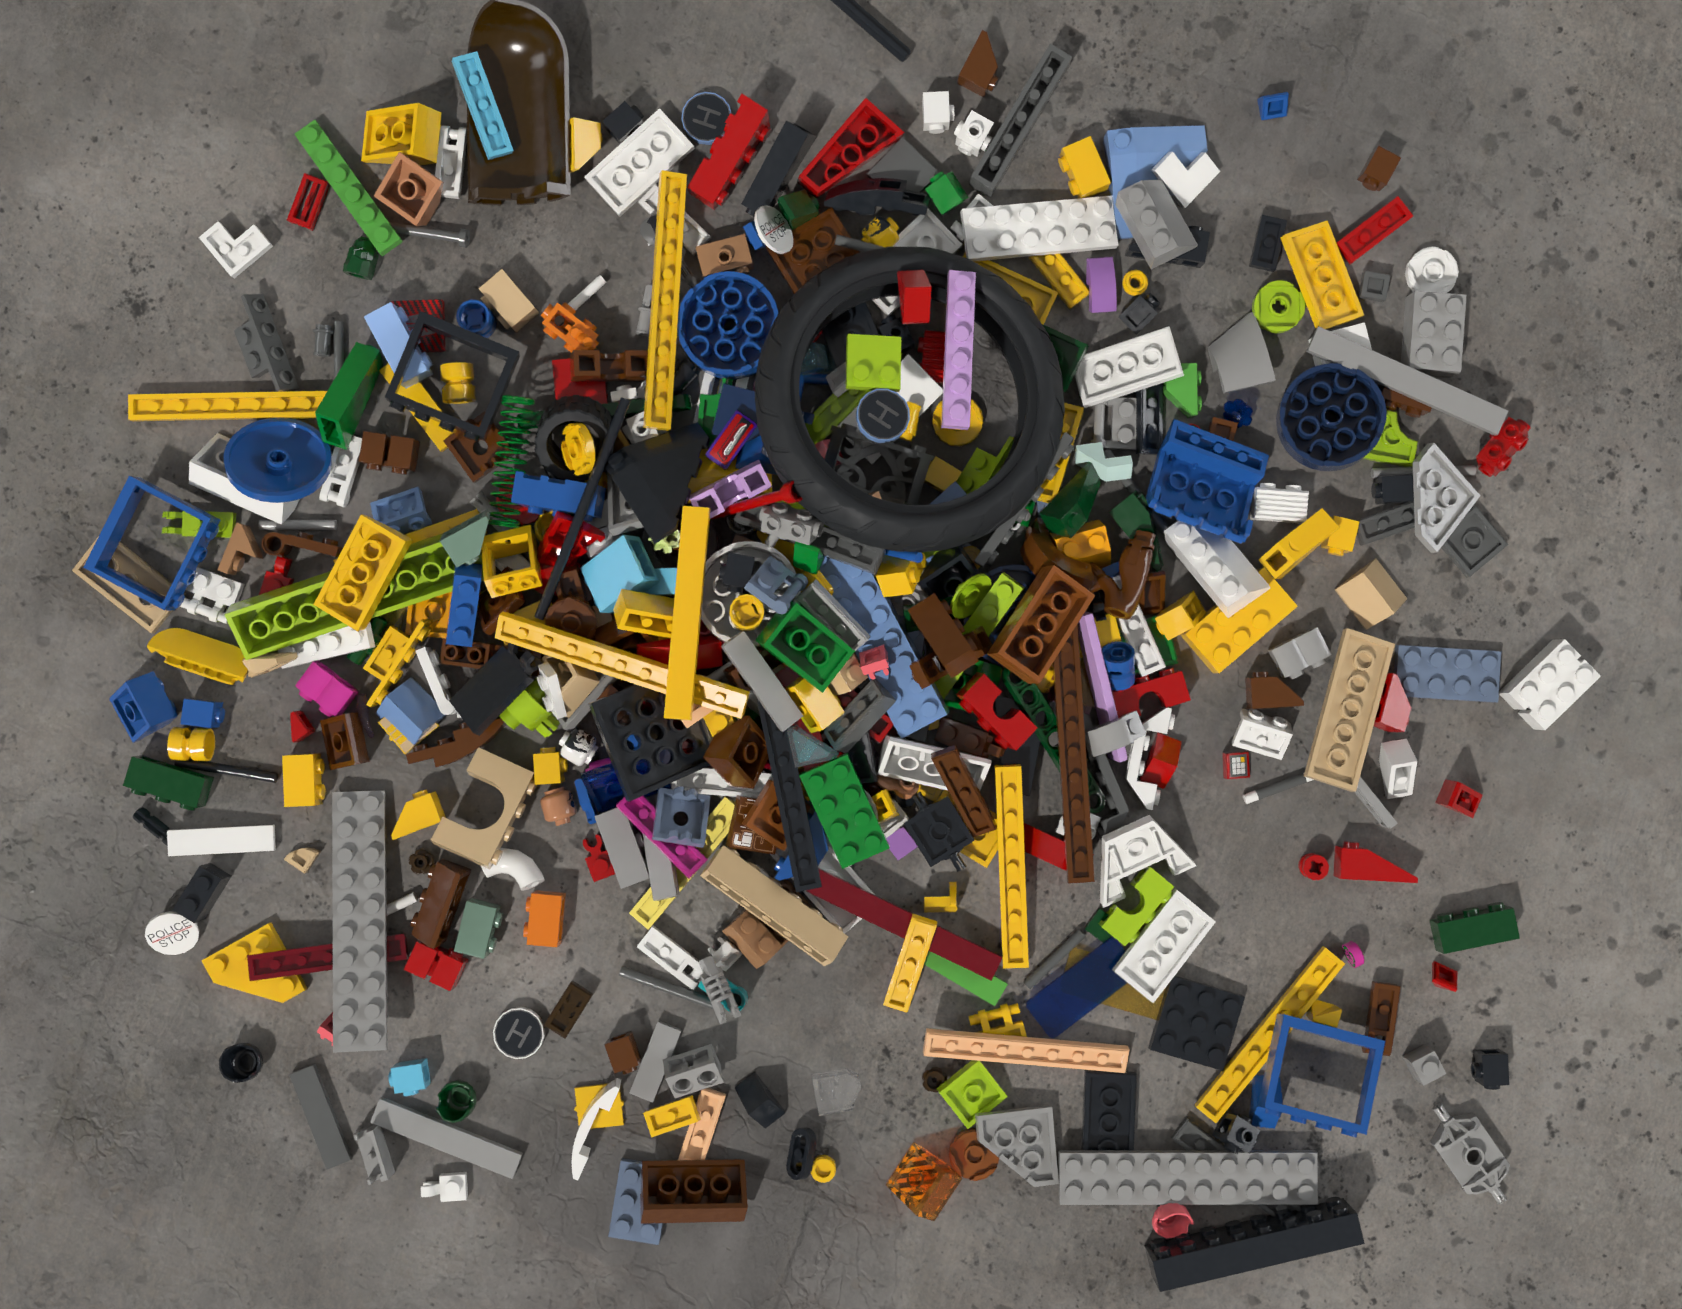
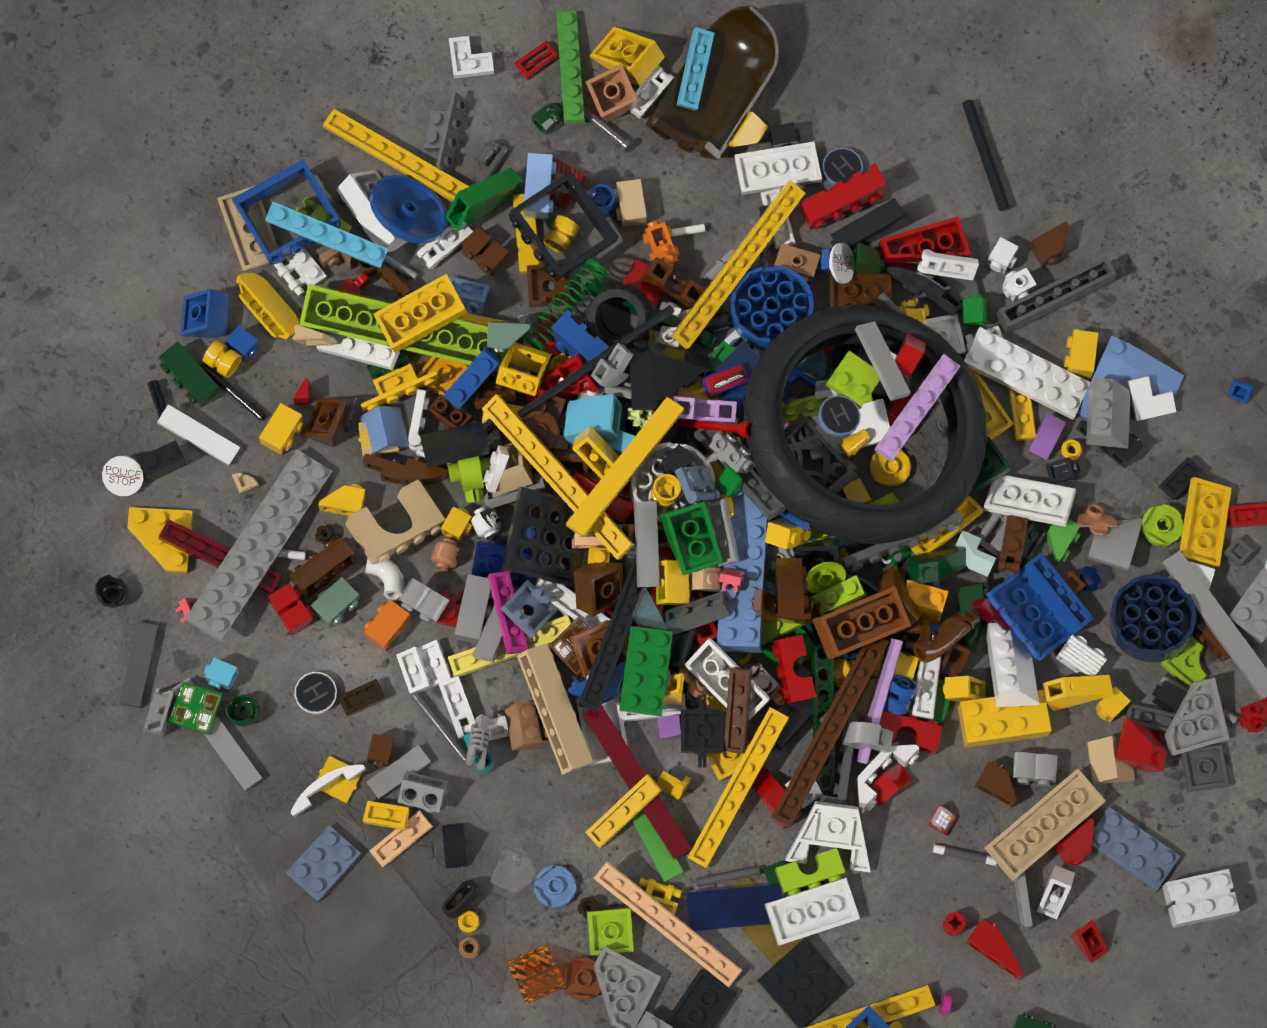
camera: 30 degrees right, 15 degrees down
(207, 546) = (326, 235): none -> medium azure plate
(326, 688) = (338, 379): dark pink brick -> none
(407, 1129) = (195, 708): none -> green tile
(450, 1187) = (196, 769): white plate -> none
(566, 873) = (423, 600): none -> light grey brick
(578, 448) = (619, 321): yellow tile -> none
(586, 801) = (467, 562): blue tile -> none
(606, 509) = (612, 371): none -> light grey brick
(611, 936) = (424, 666): none -> white slope
(693, 1191) = (368, 875): reddish brown slope -> none
(840, 1202) = (469, 941): none -> medium nougat plate
(887, 160) = (948, 265): none -> white plate
(887, 1078) = (555, 886): none -> medium blue tile
(891, 322) = (882, 361): none -> light grey tile
(1138, 427) = (1013, 544): none -> reddish brown plate
(1160, 522) = (988, 612): none -> dark red tile
(1208, 345) = (1096, 520): none -> nougat plate
(1262, 733) = (973, 808): white bracket -> none
(1399, 563) = (1141, 747): none -> red slope

